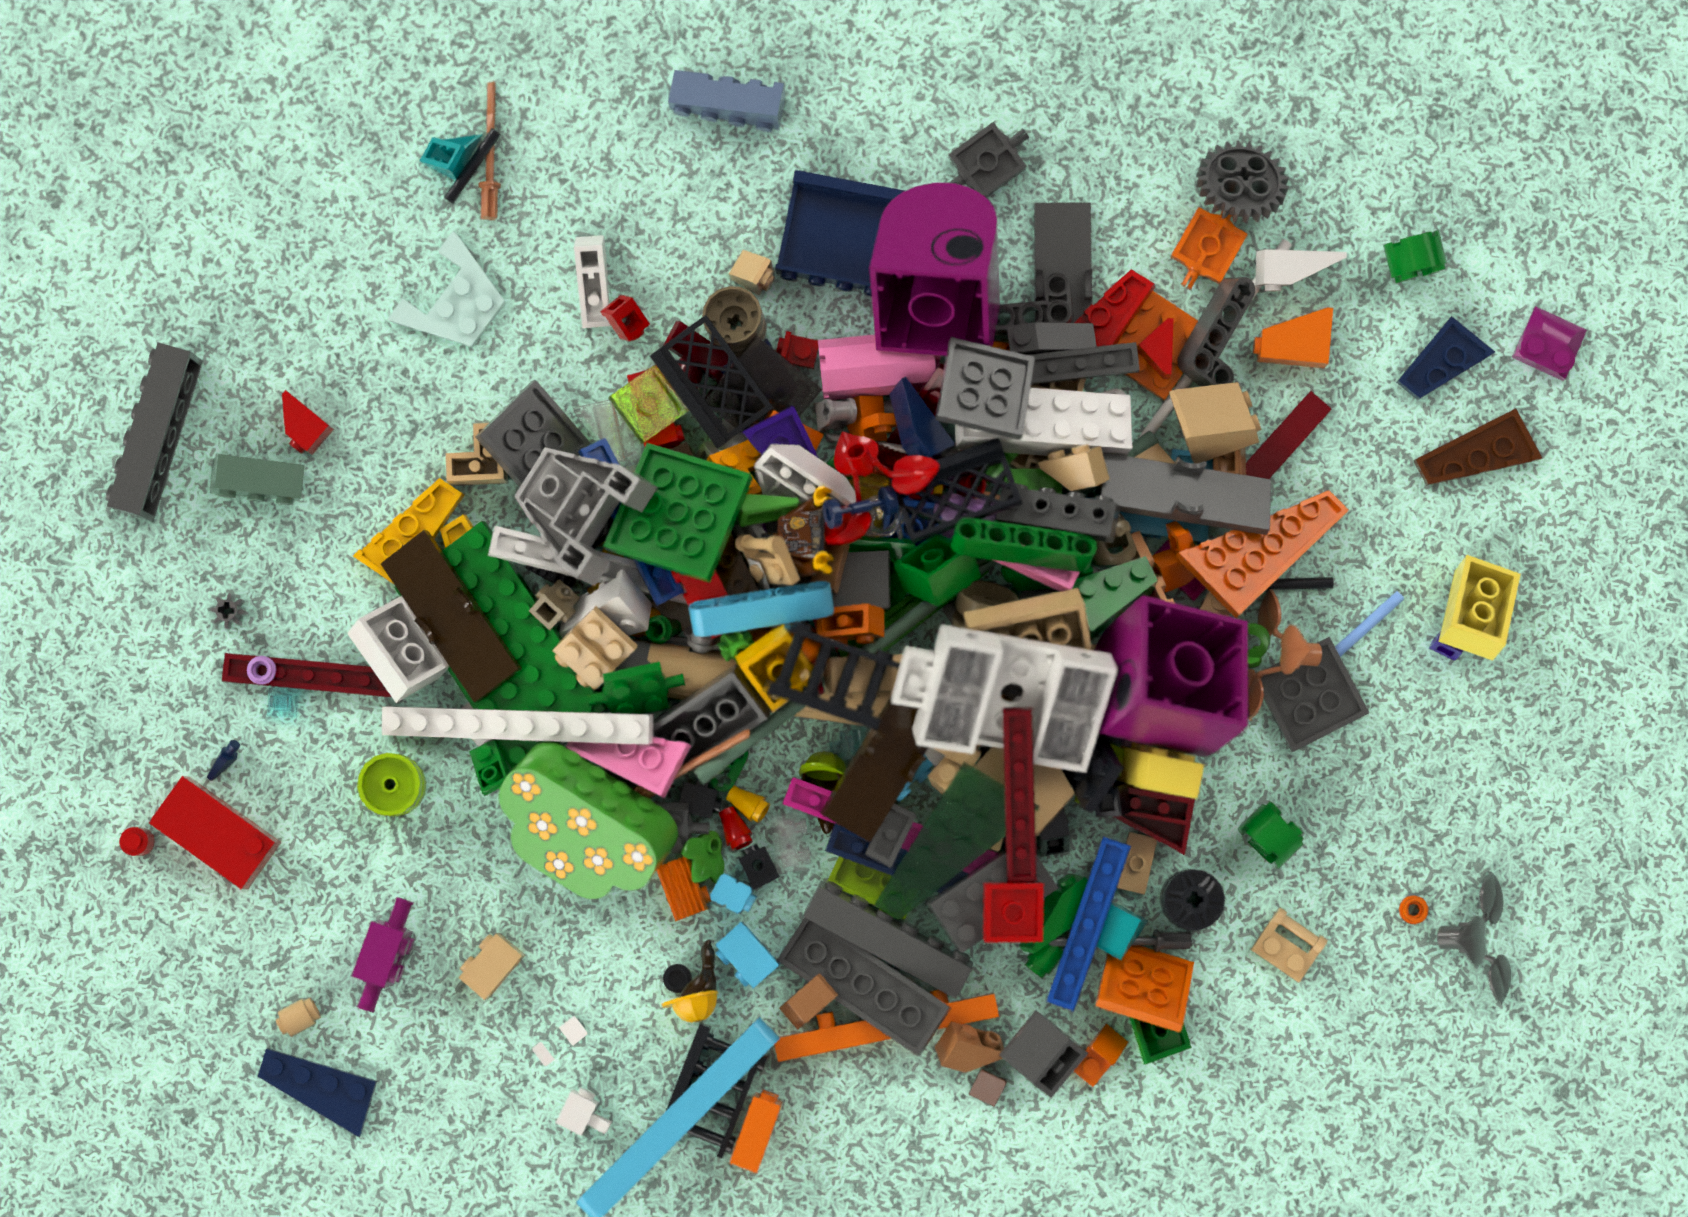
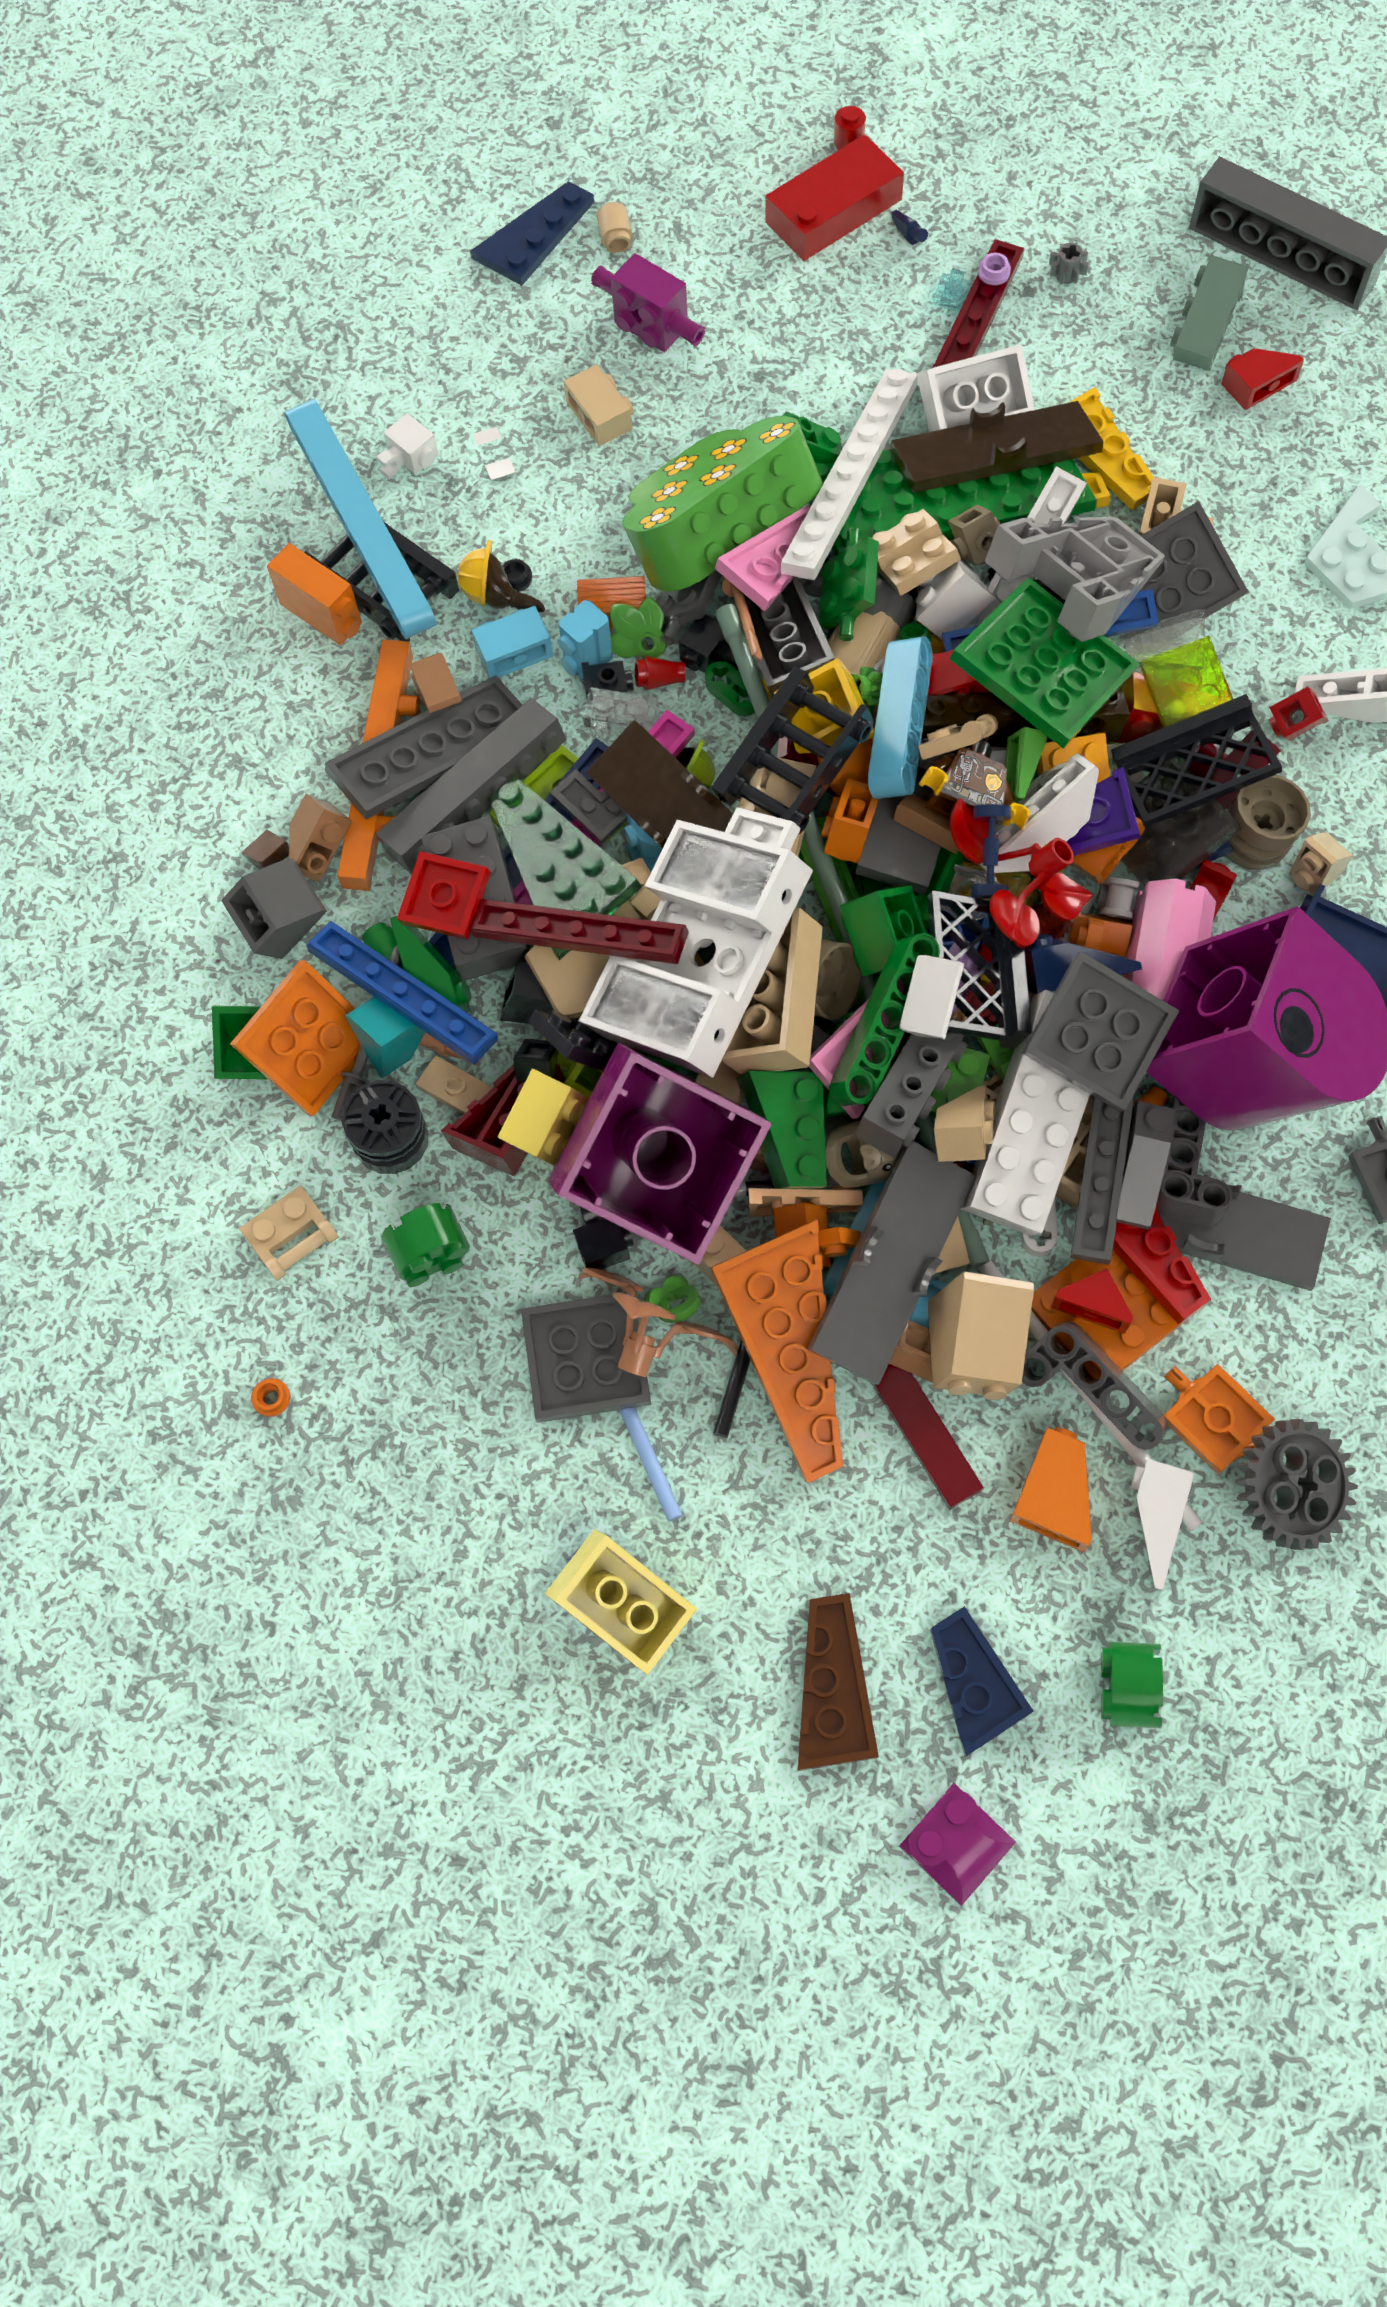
camera: 105 degrees right, 15 degrees down
(376, 776) = (828, 357): lime wheel -> none
(749, 804) = (682, 693): yellow cone -> none
(1004, 512) = (931, 996): none -> white slope
(1102, 1053) = (247, 975): orange slope -> none
(1470, 938) = (189, 1419): dark grey plant -> none

